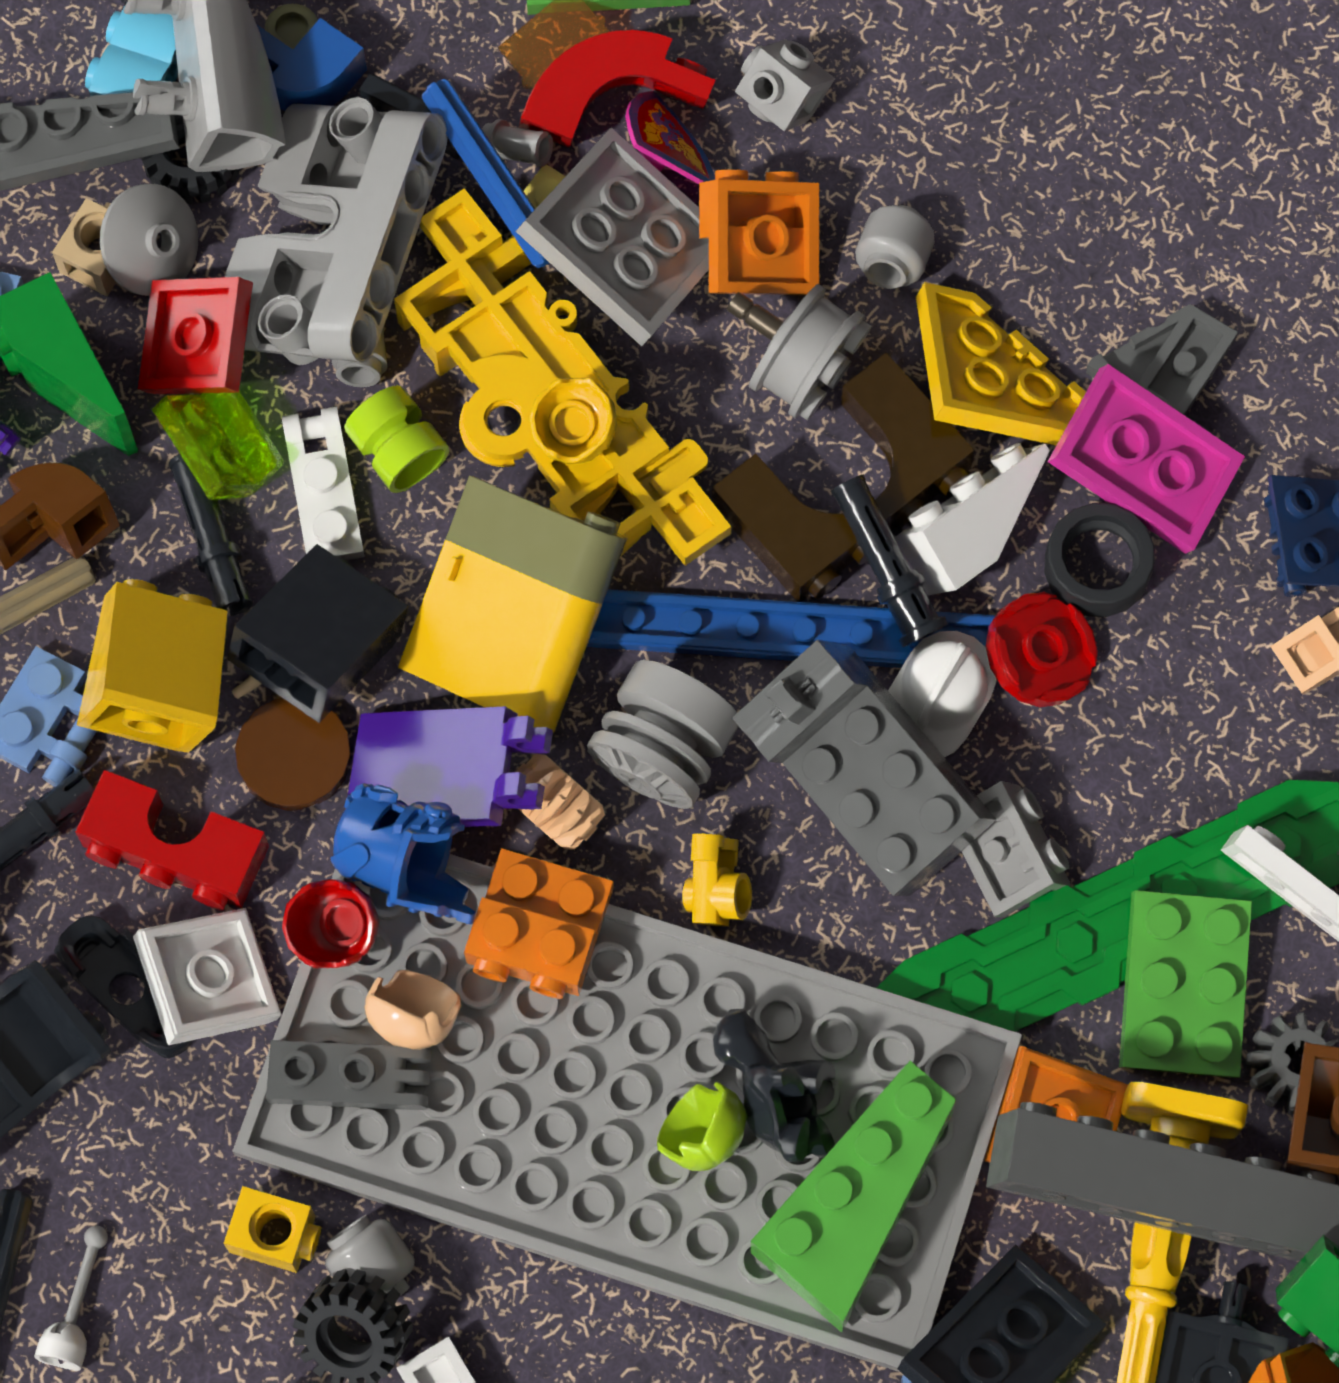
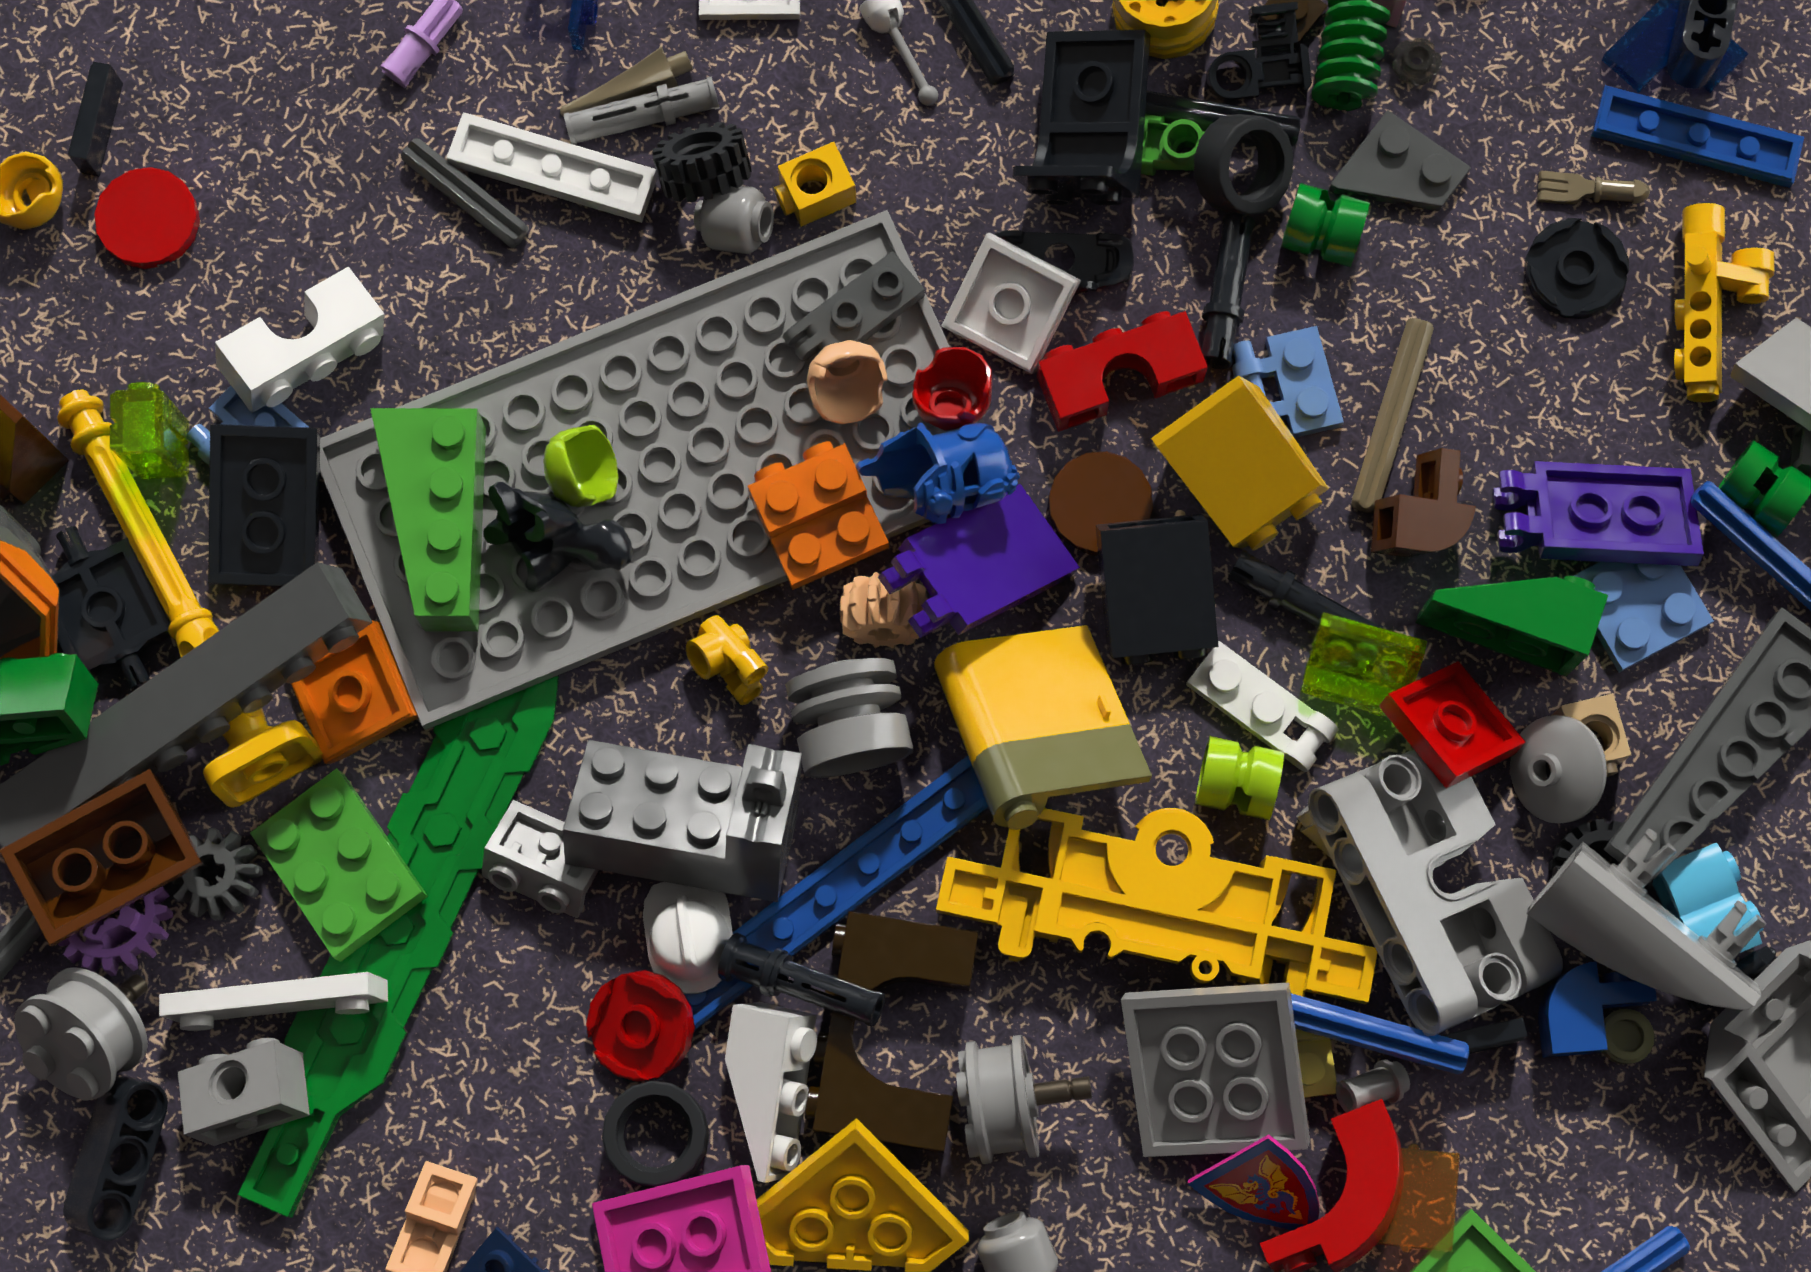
camera: 140 degrees right, 5 degrees up
(573, 420) = (1113, 876): yellow hair -> none
(760, 233) = (1123, 1170): orange plate -> none

